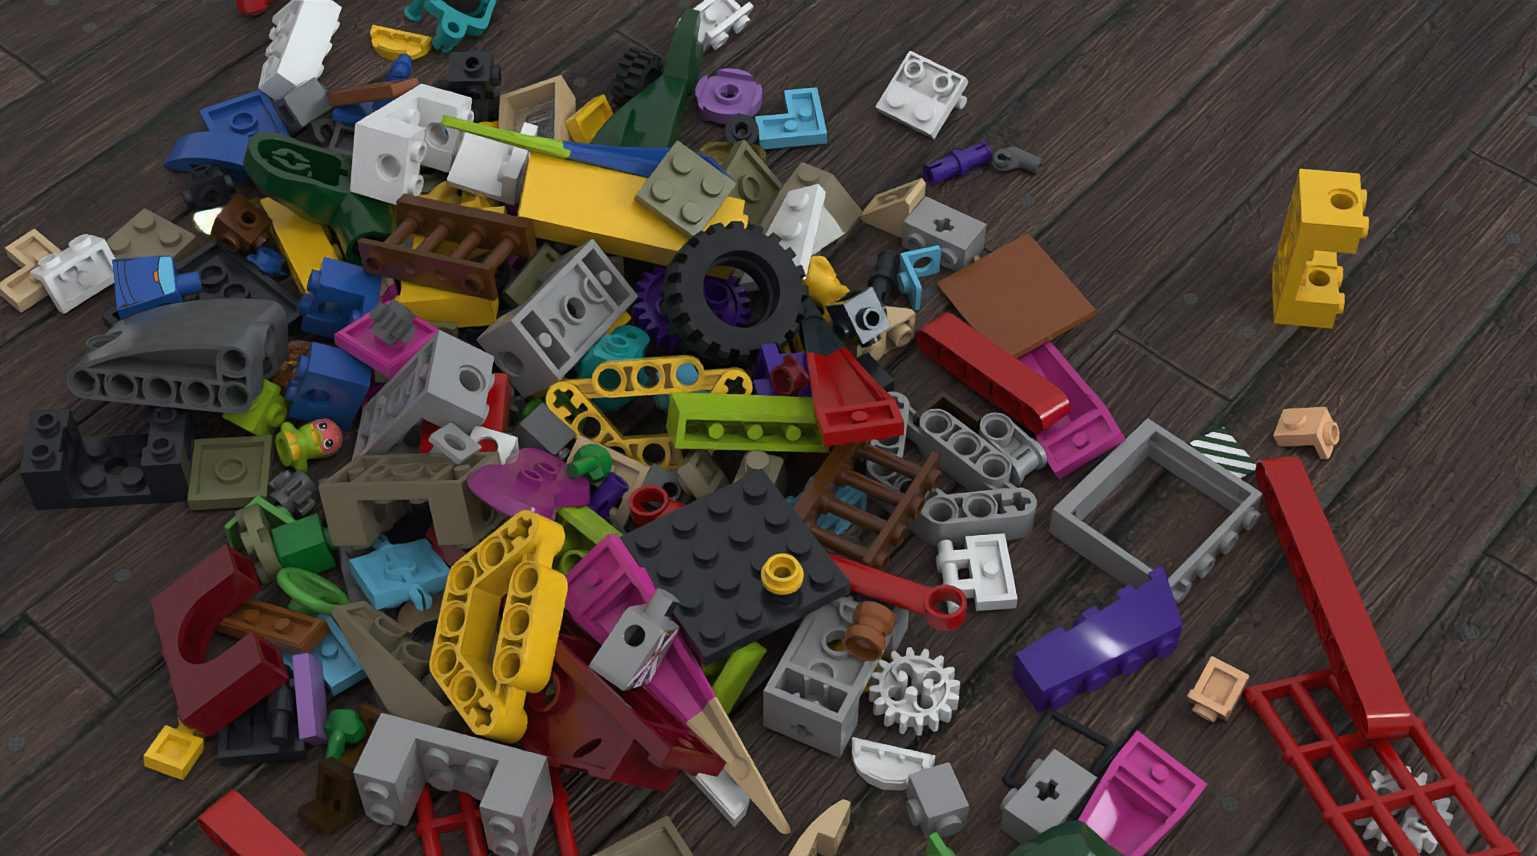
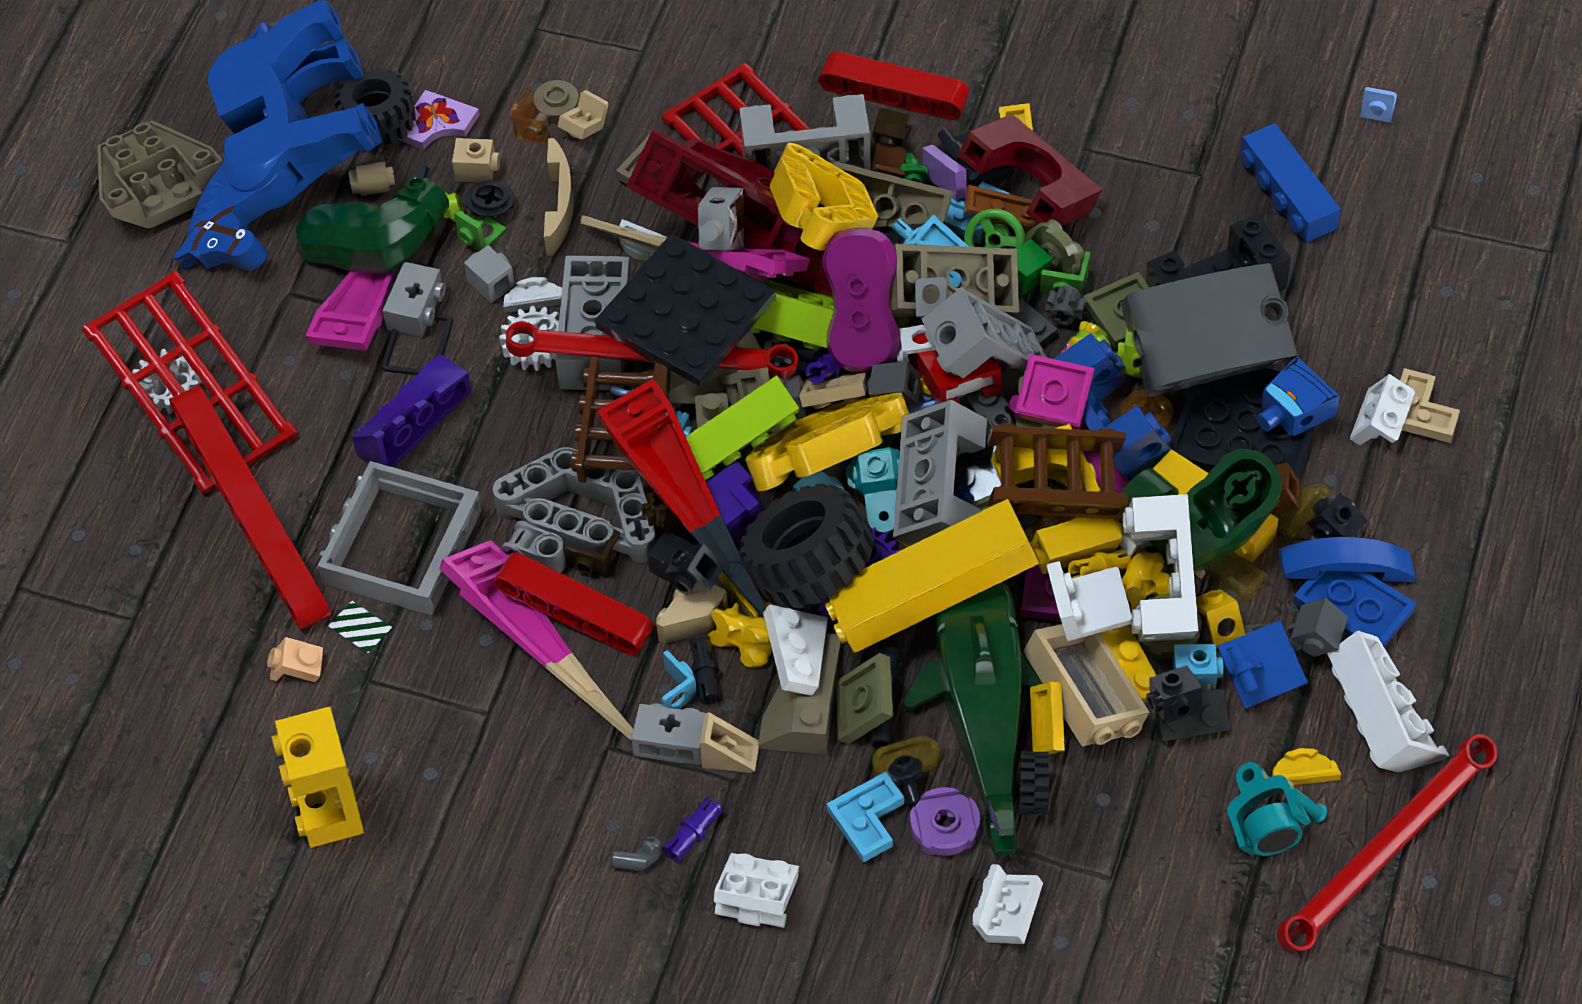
camera: 160 degrees right, 5 degrees up
(152, 236) = (1354, 467): dark tan plate -> none
(372, 92) = (1249, 631): dark orange tile -> none
(393, 322) = (1047, 364): dark grey gear -> none
(592, 462) = (838, 369): green plate -> none
(630, 160) = (929, 625): plate -> none
(685, 190) = (887, 589): olive plate -> none
(782, 565) = (640, 282): yellow plate -> none
(789, 377) = (719, 473): dark red plate -> none
(868, 633) = (569, 304): dark orange wheel -> none
(989, 571) = (512, 443): white plate -> none
(1016, 297) = (580, 688): dark orange piece -> none
(1217, 690) = (317, 413): light nougat bracket -> none

